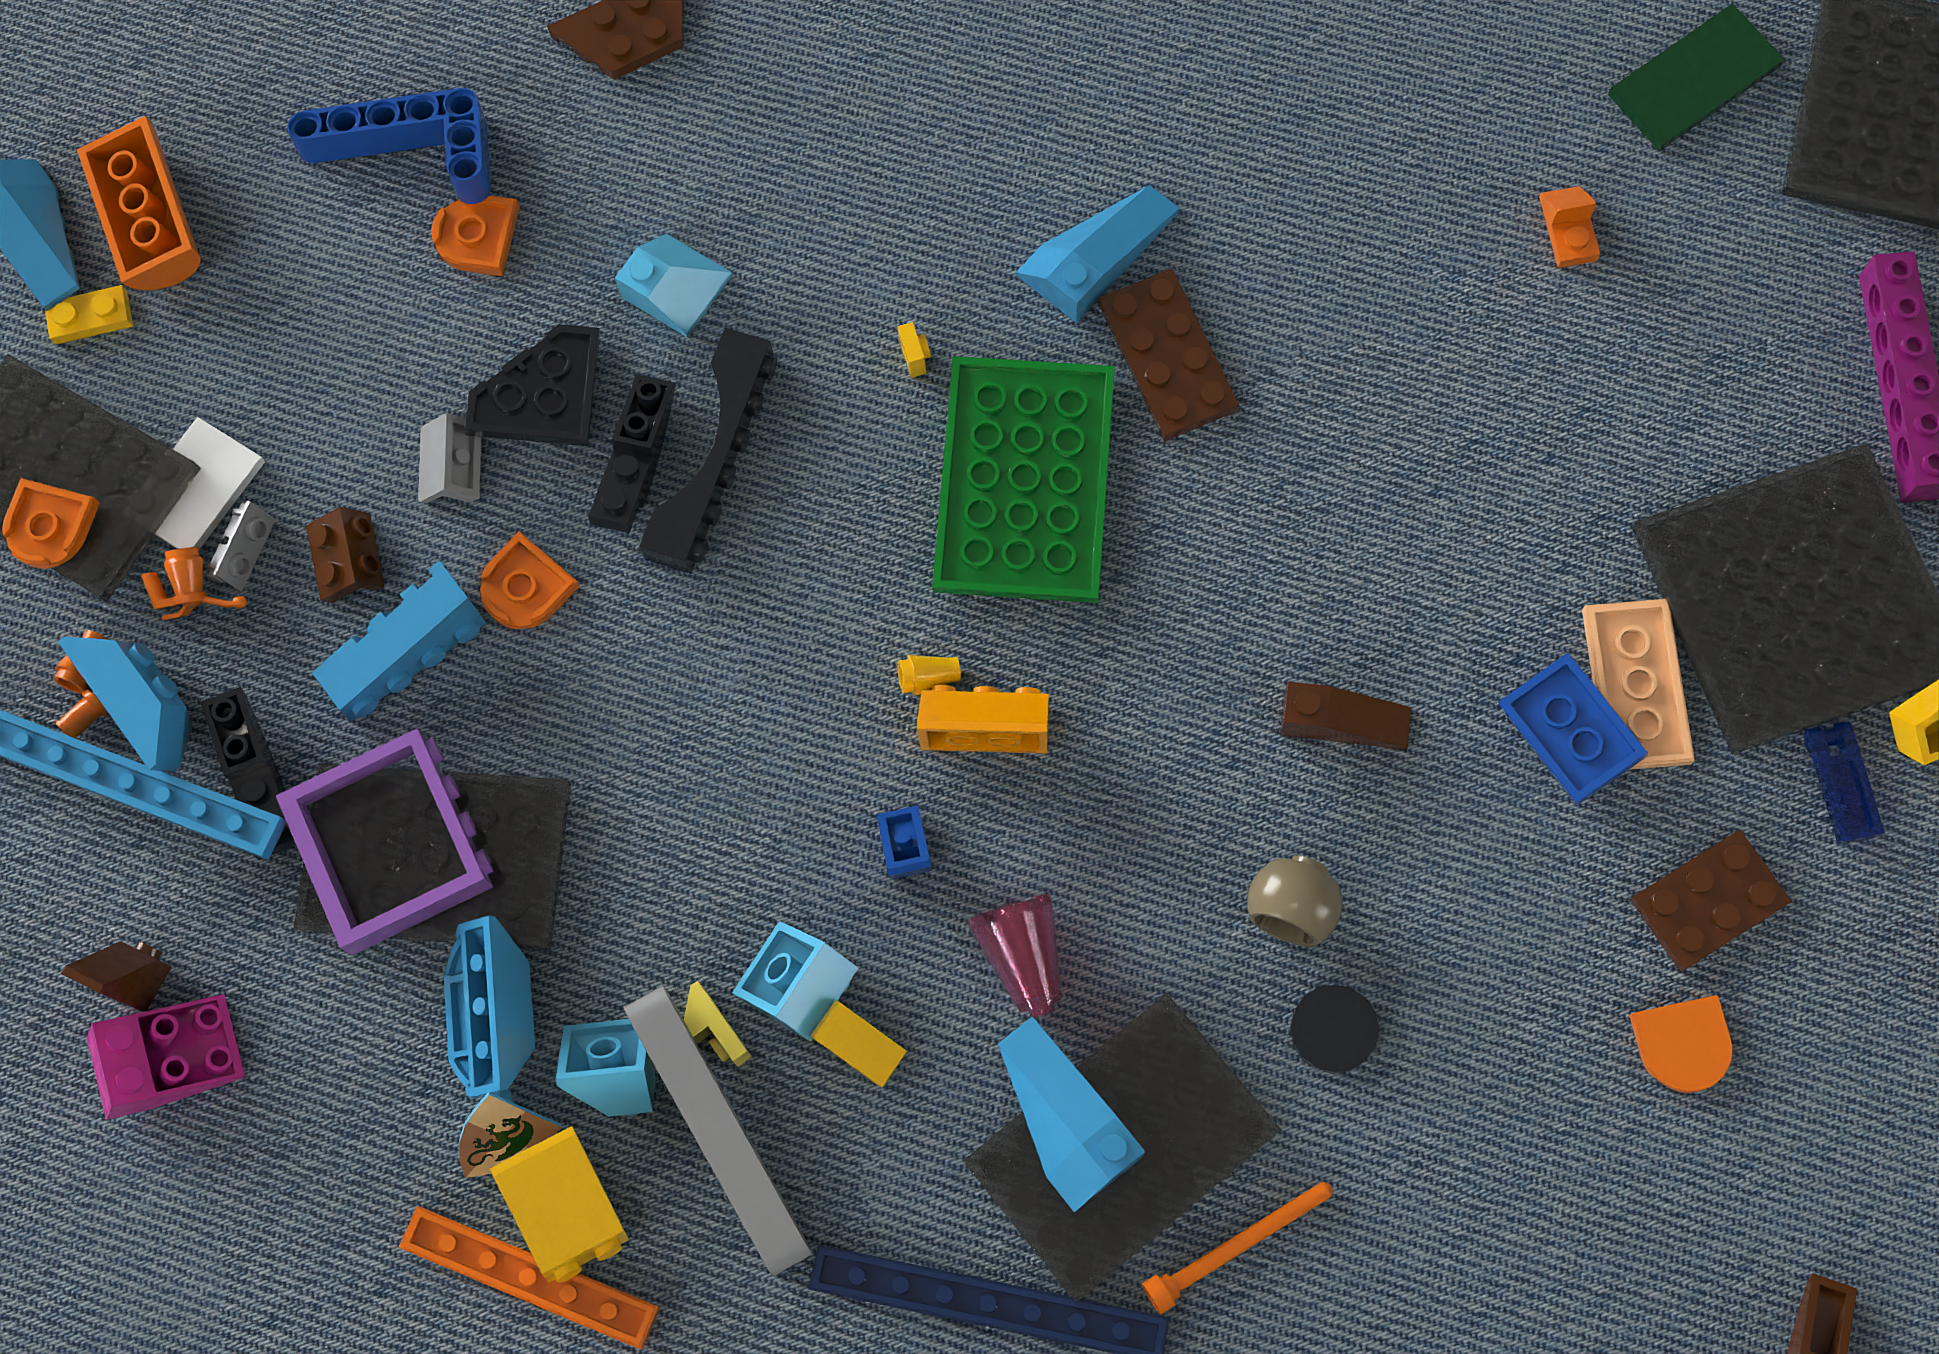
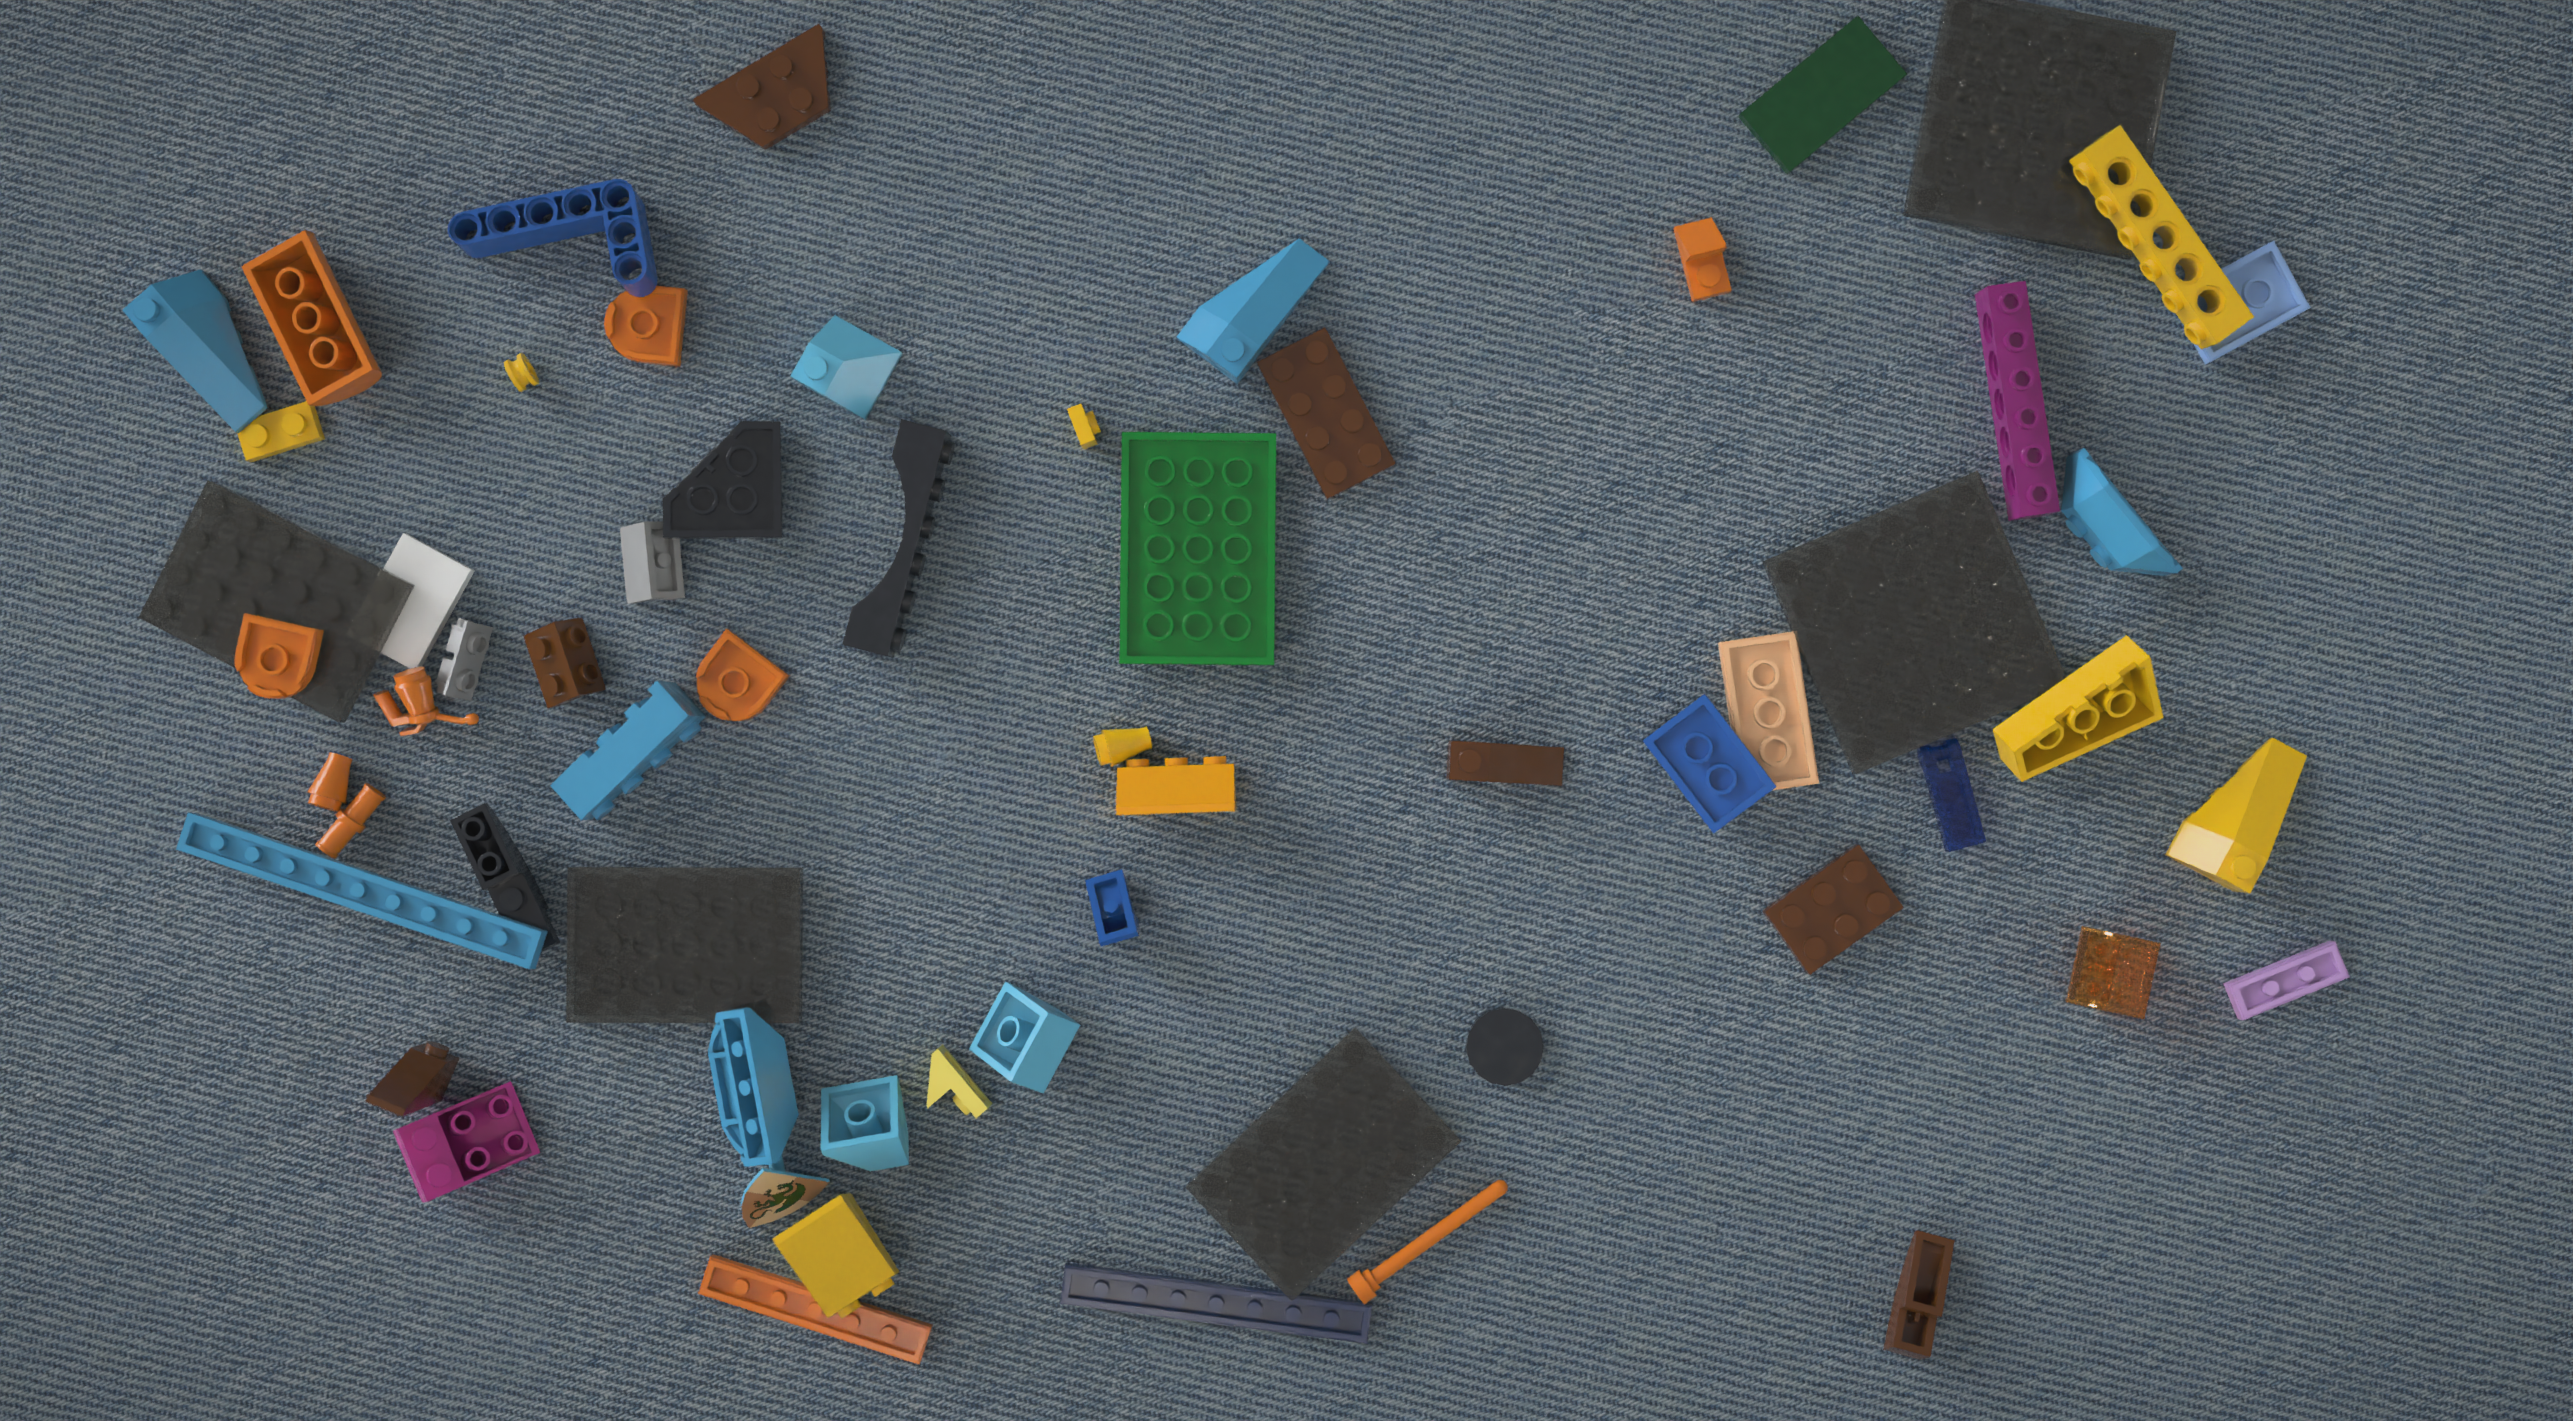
camera: 15 degrees left, 15 degrees up
(135, 696) = (386, 822): dark azure wedge -> none
(341, 268) = (521, 372): none -> yellow bush
(350, 935) = (586, 972): medium lavender window -> none
(634, 454) = (827, 548): black slope -> none
(718, 1131) = (967, 1179): light grey beam -> none
(858, 1043) = (1085, 1091): yellow tile -> none
(1022, 951) = (1224, 998): clear pink cone -> none
(1070, 1124) = (1278, 1154): dark azure wedge -> none
(1295, 901) = (1466, 940): dark tan wheel -> none
(1684, 1043) = (1810, 1038): orange tile -> none

